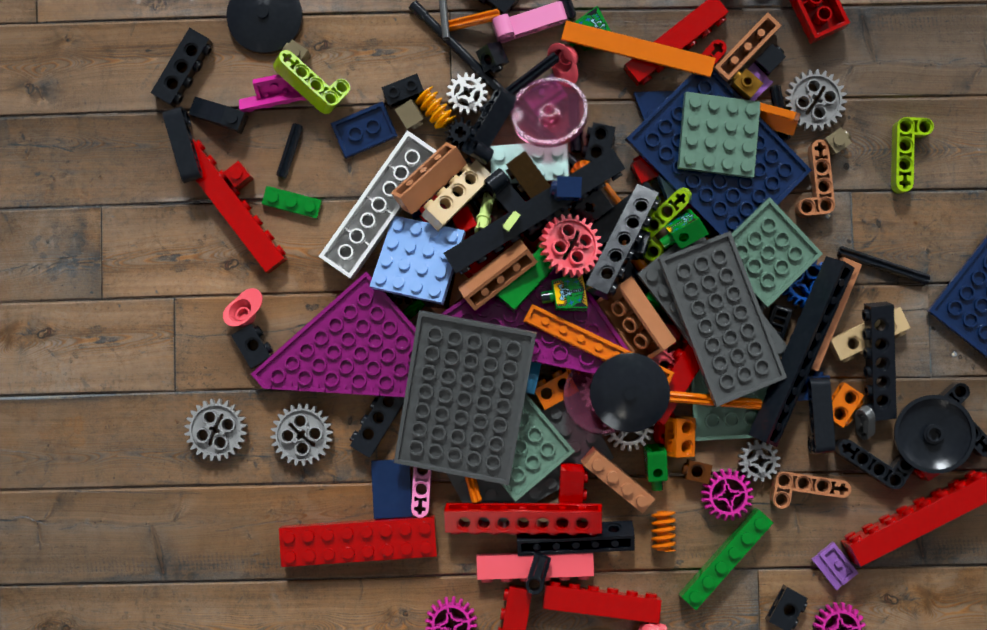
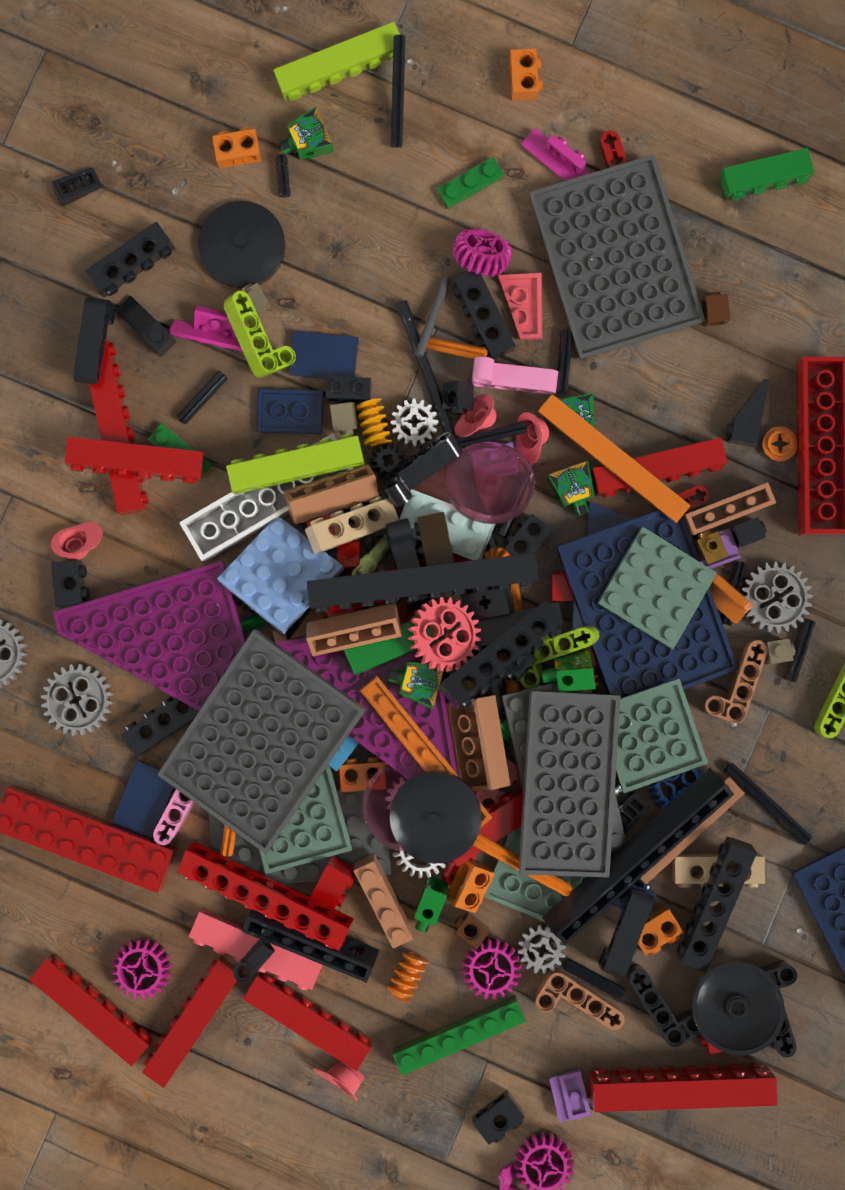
camera: 20 degrees right, 0 degrees up
(116, 33) = (71, 196): none -> black slope
(238, 175) = (137, 399): red brick -> none
(260, 223) = (133, 459): none -> red brick
(370, 73) = (323, 355): none -> dark blue tile
(390, 167) = (295, 464): none -> lime brick
(511, 221) = (391, 581): yellowish green tile -> none
(518, 65) = (478, 419): none -> coral piece
(566, 188) = (465, 573): dark blue brick -> none
(615, 87) = (573, 487): none -> torso
(810, 465) = (594, 978): none -> black axle
(852, 129) = (800, 650): none -> black axle
(865, 422) = (671, 960): dark grey beam -> none

